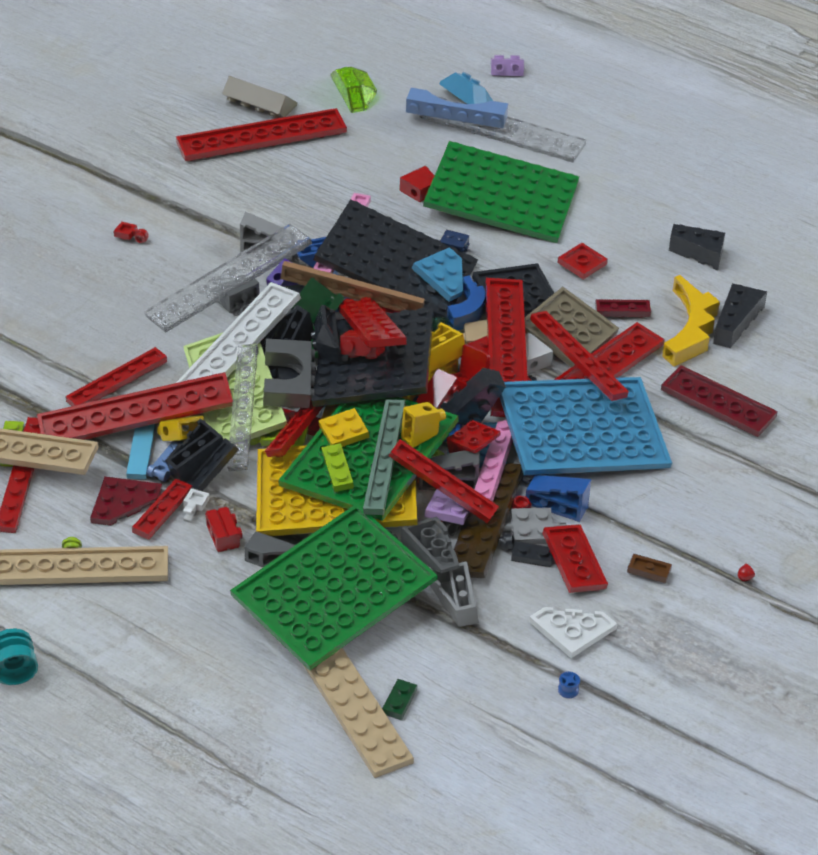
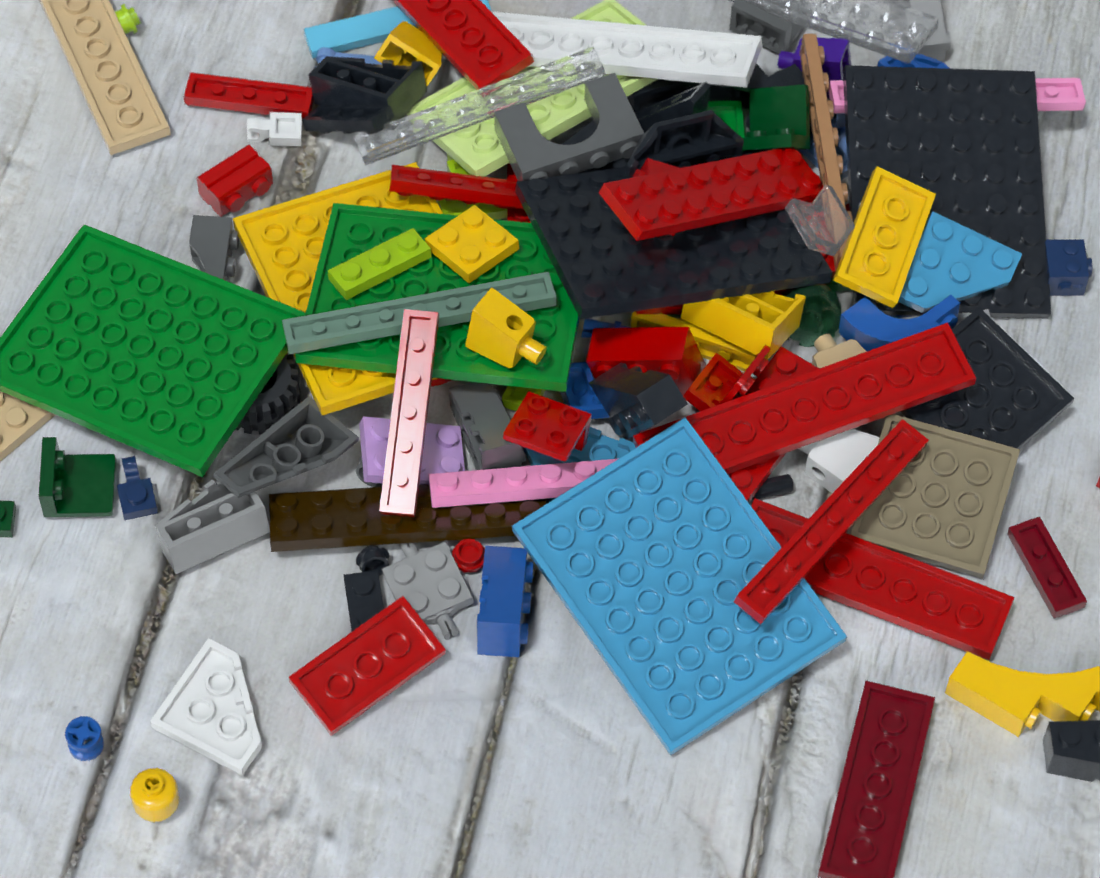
camera: 70 degrees right, 15 degrees up
(122, 498) = (253, 44): dark red plate -> none
(398, 649) = (75, 483): none -> dark green bracket
(399, 299) = (823, 223): none -> clear panel
(416, 627) = (136, 495): none -> dark blue plate
(422, 282) = (884, 237): none -> yellow plate
(619, 661) = (154, 794): none -> yellow head
(649, 568) = (398, 786): reddish brown plate -> none

